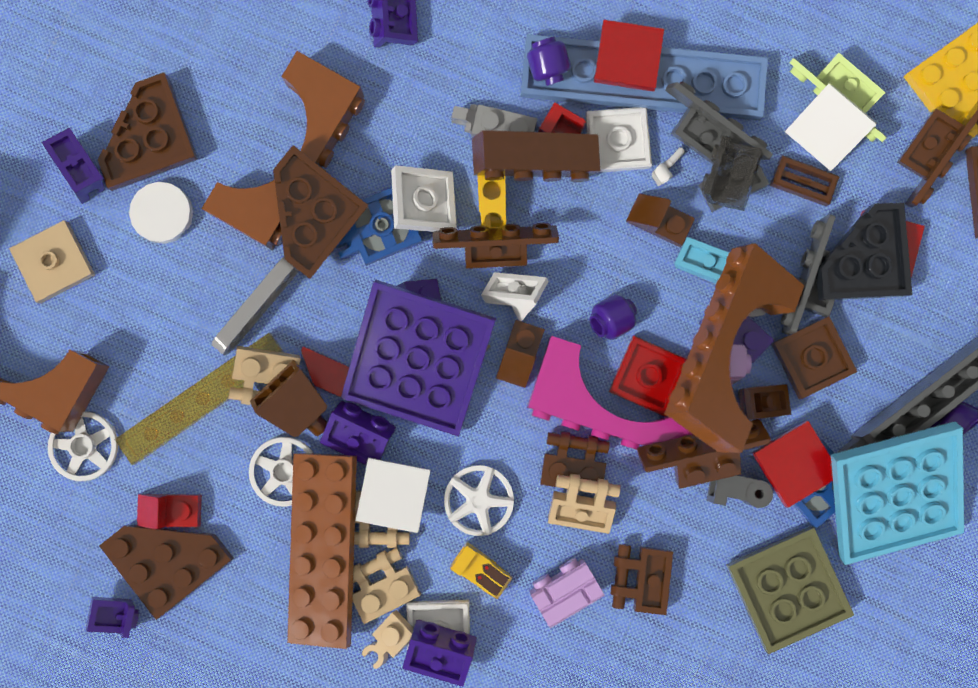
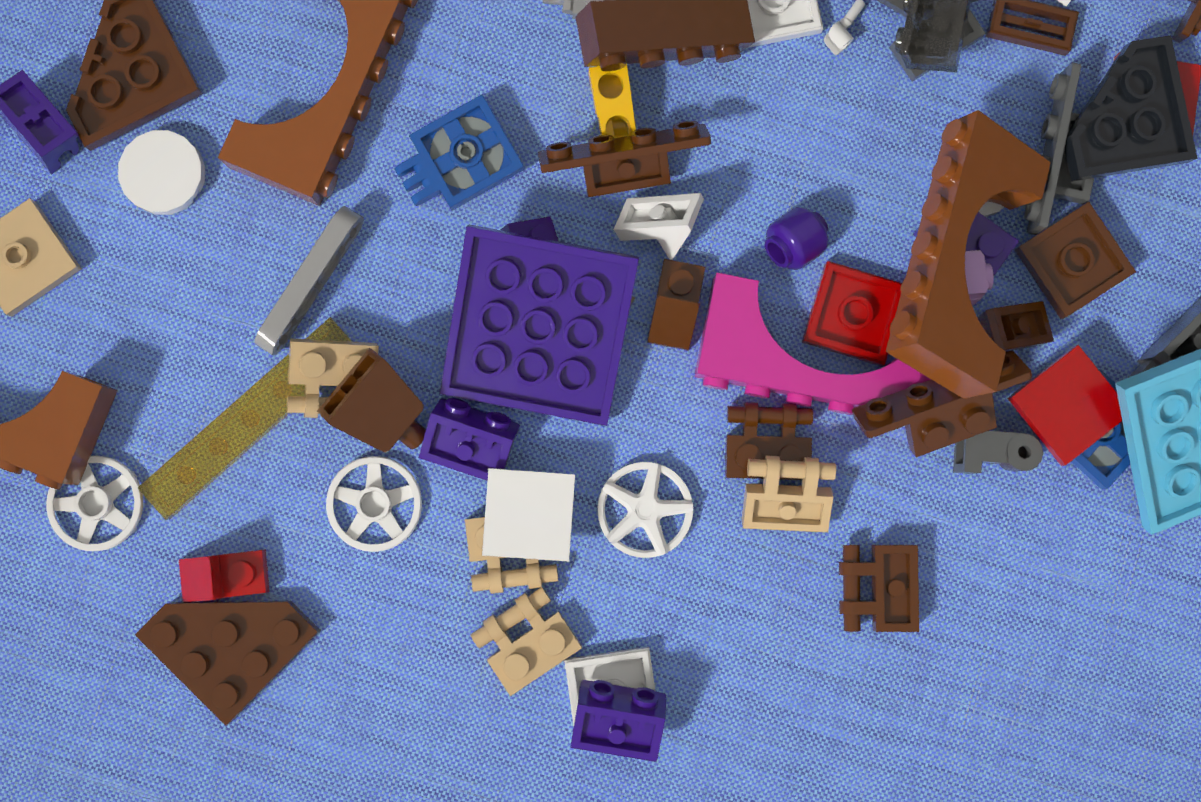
camera: 10 degrees left, 0 degrees up
(112, 616) = (165, 727): dark purple bracket -> none
(312, 211) = (370, 142): reddish brown plate -> none
(322, 550) = (441, 602): dark orange plate -> none
(325, 371) = (414, 361): red tile -> none
(392, 638) = (551, 709): tan plate -> none
(423, 199) = (518, 109): white plate -> none
(481, 570) = (660, 603): yellow leg -> none
(565, 592) = (779, 617): lavender brick -> none
(658, 218) = (840, 98): reddish brown slope -> none
(701, 260) = (907, 146): medium azure plate -> none
(790, 590) = (1081, 577): olive plate -> none

